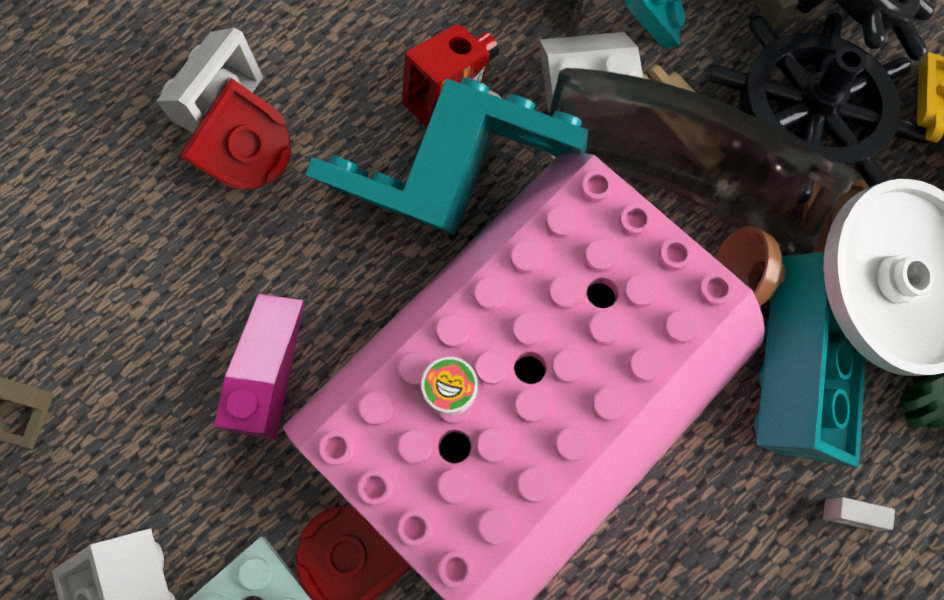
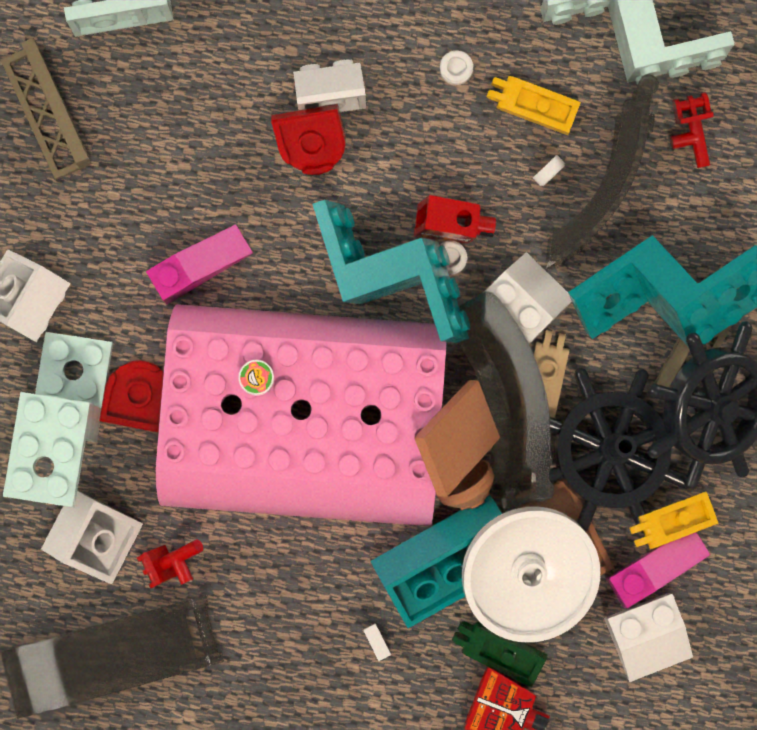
camera: 50 degrees right, 10 degrees up
(705, 227) = (457, 438): none -> nougat tile

